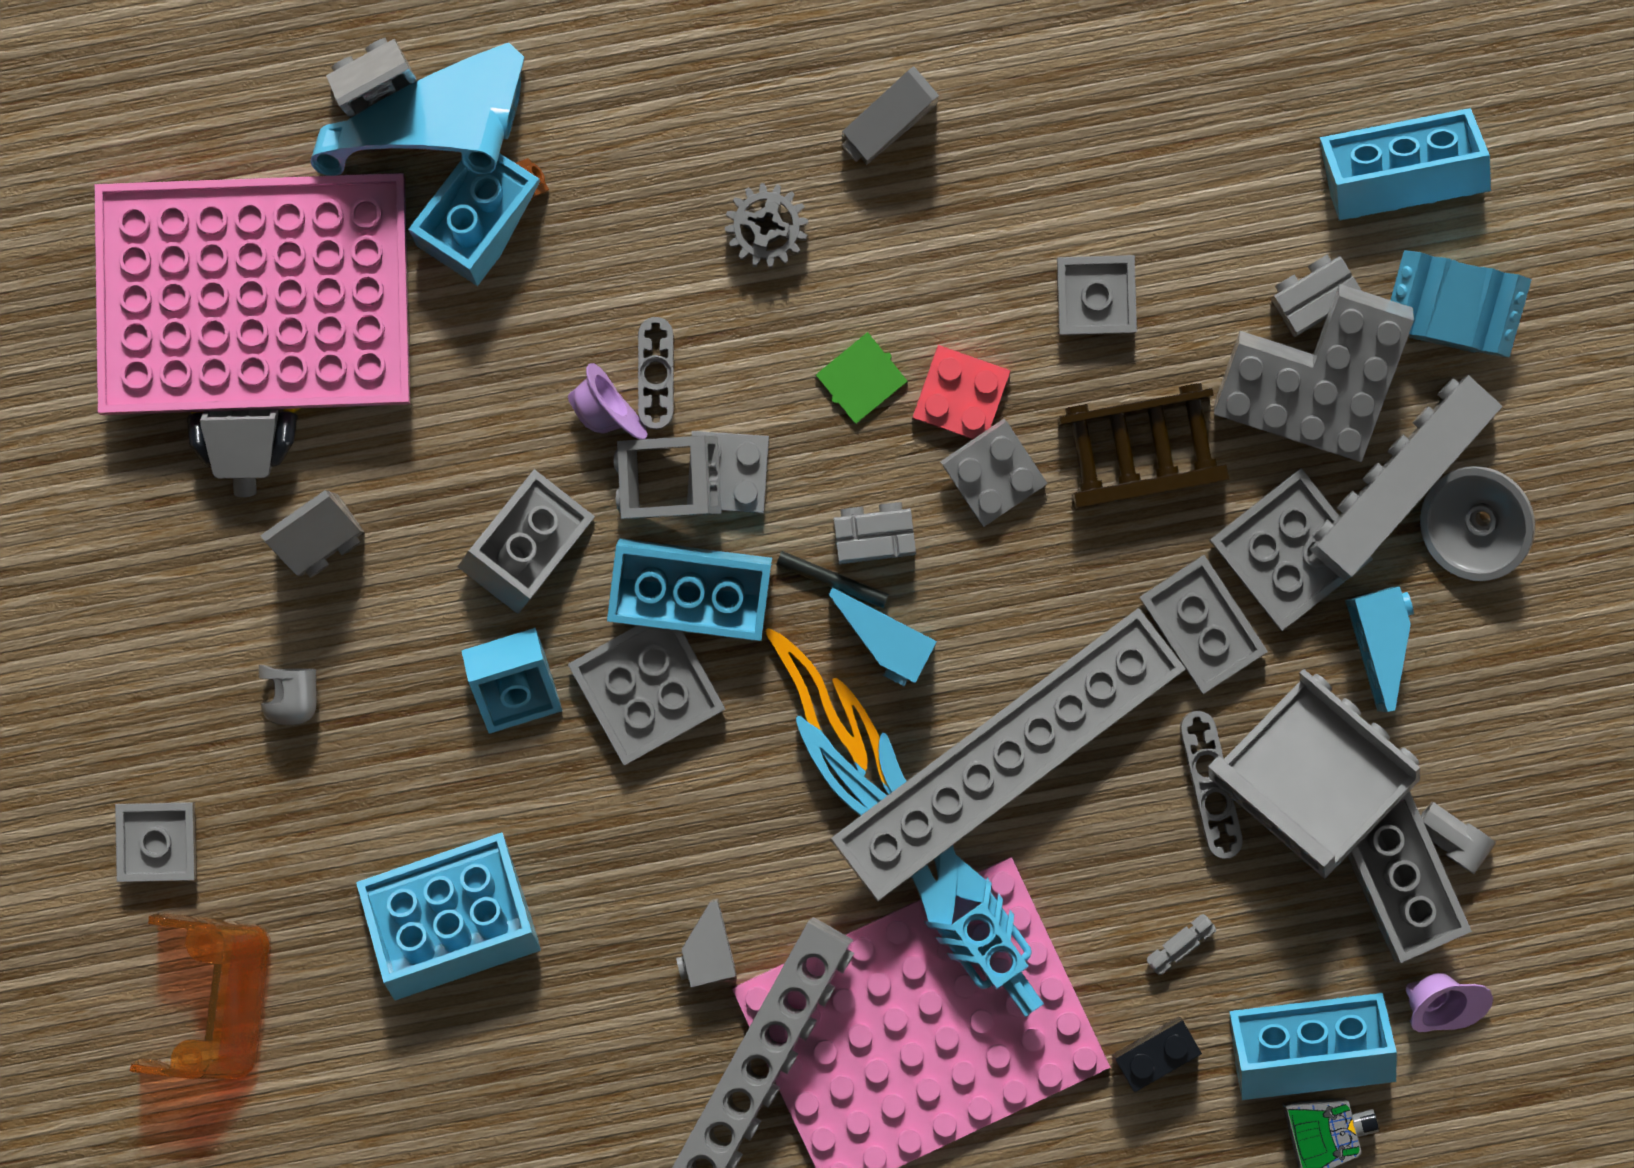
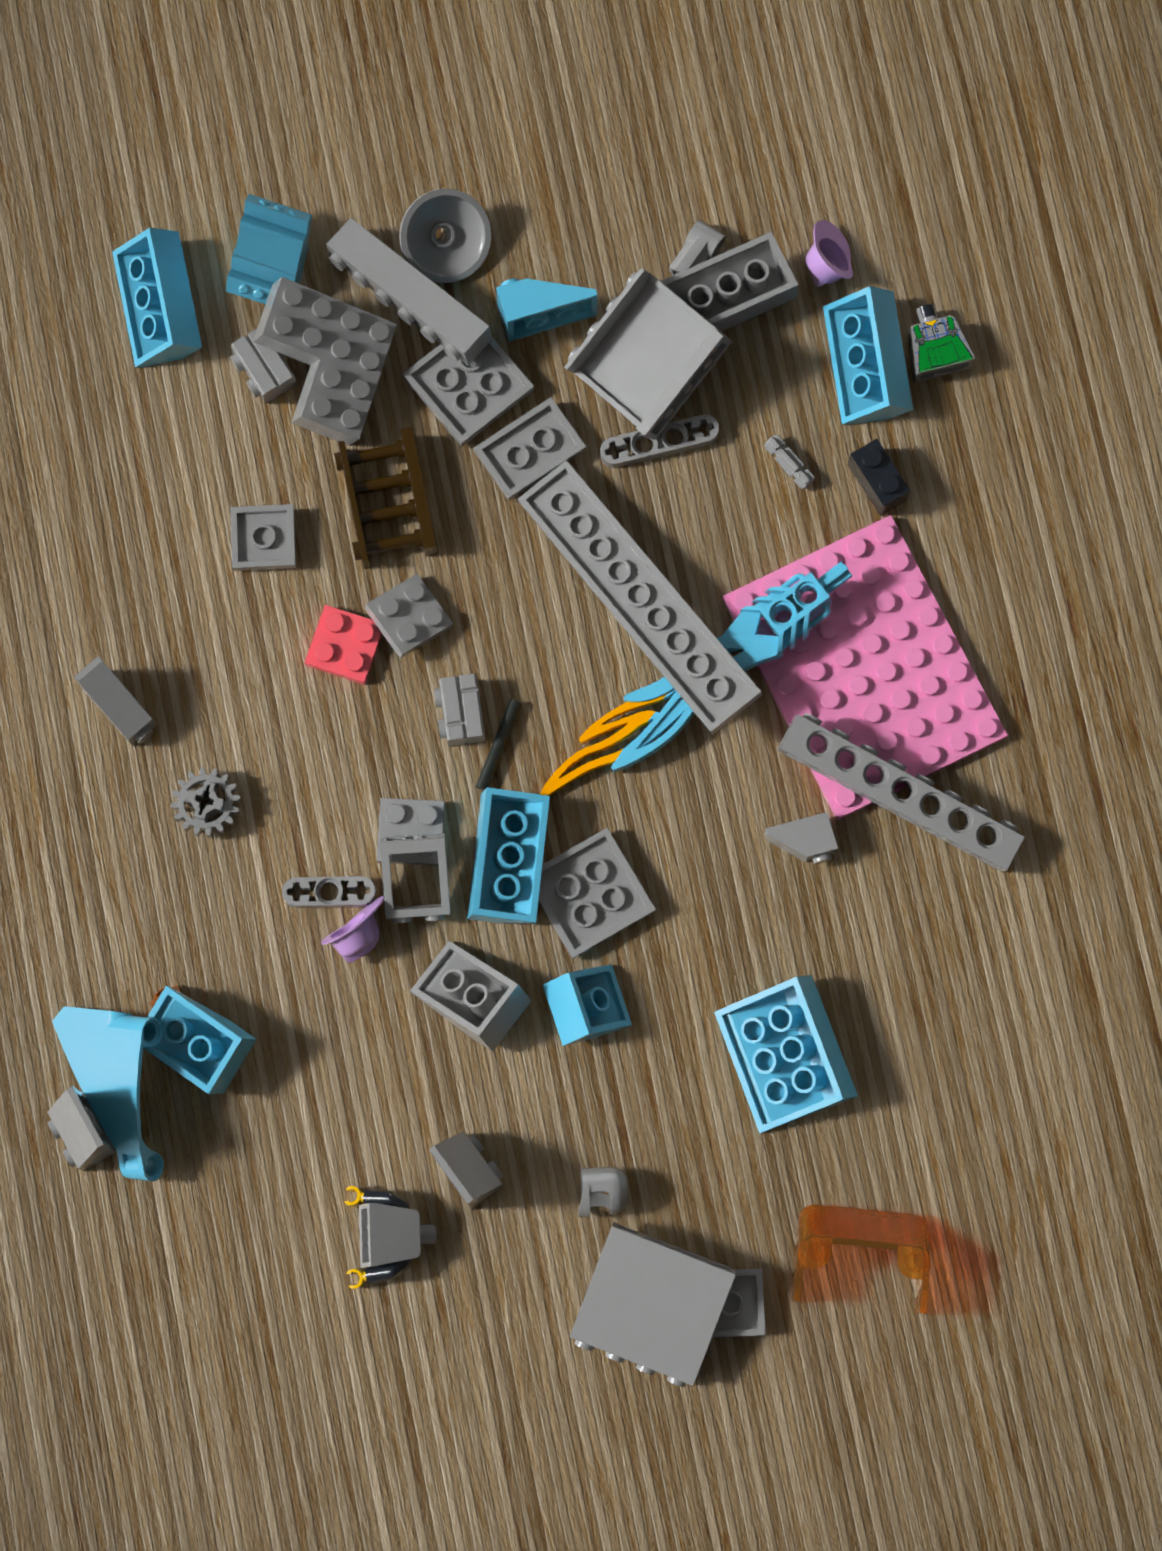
camera: 90 degrees left, 10 degrees down
(153, 751) = (652, 1305): none -> light grey panel
(251, 294) = (264, 1230): bright pink plate -> none
(861, 378) = (332, 725): bright green piece -> none
(889, 641) = (547, 695): medium azure slope -> none

